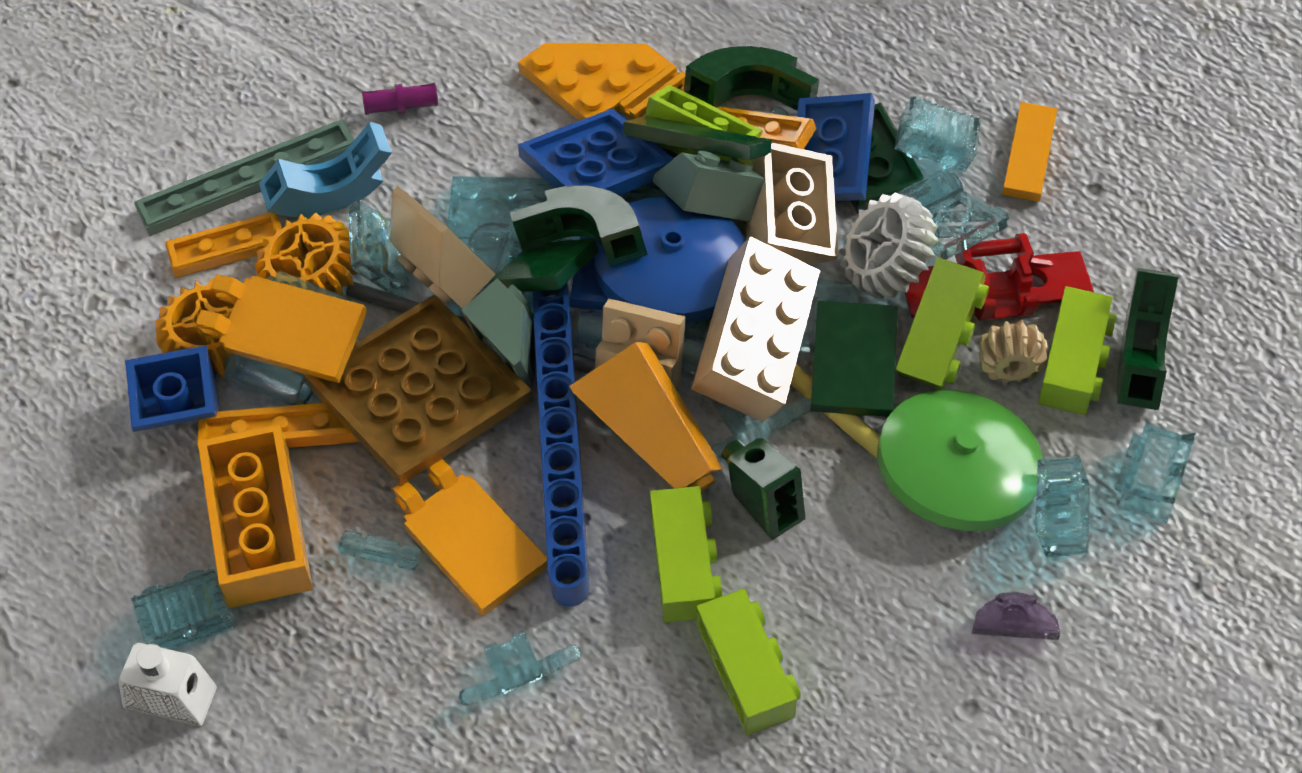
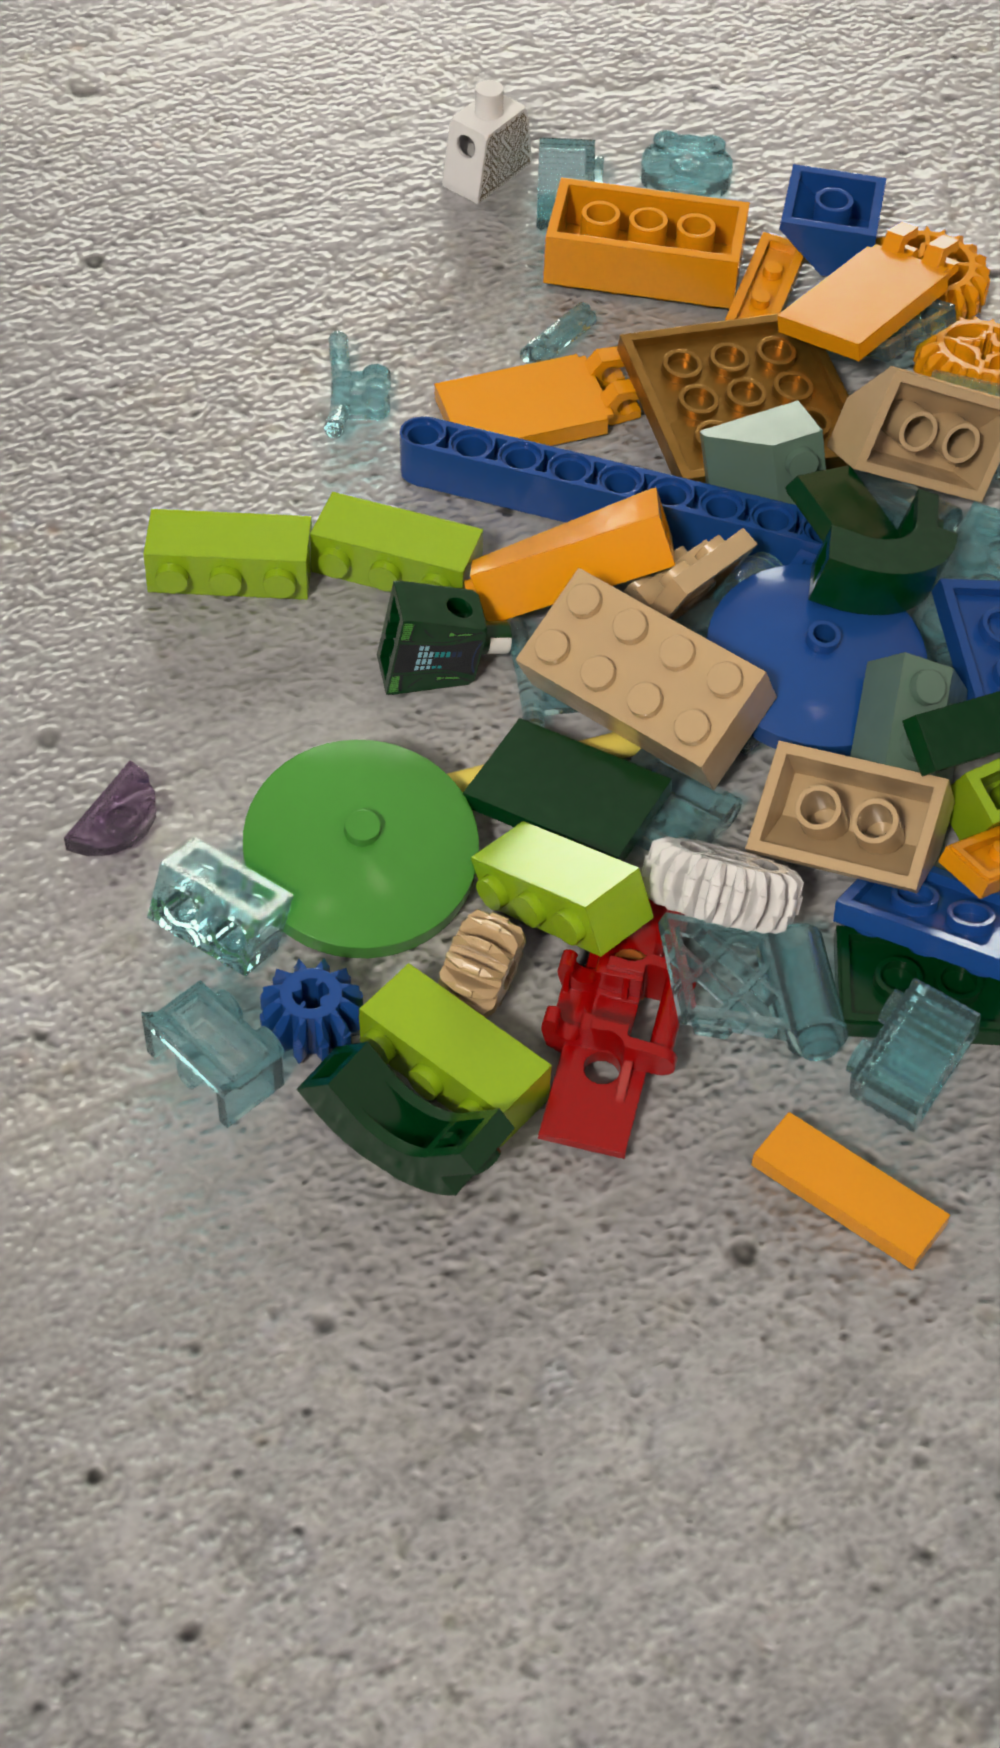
camera: 110 degrees right, 5 degrees down
(99, 524) = (671, 153): none -> clear light blue plate
(1095, 433) = (311, 1009): none -> blue gear

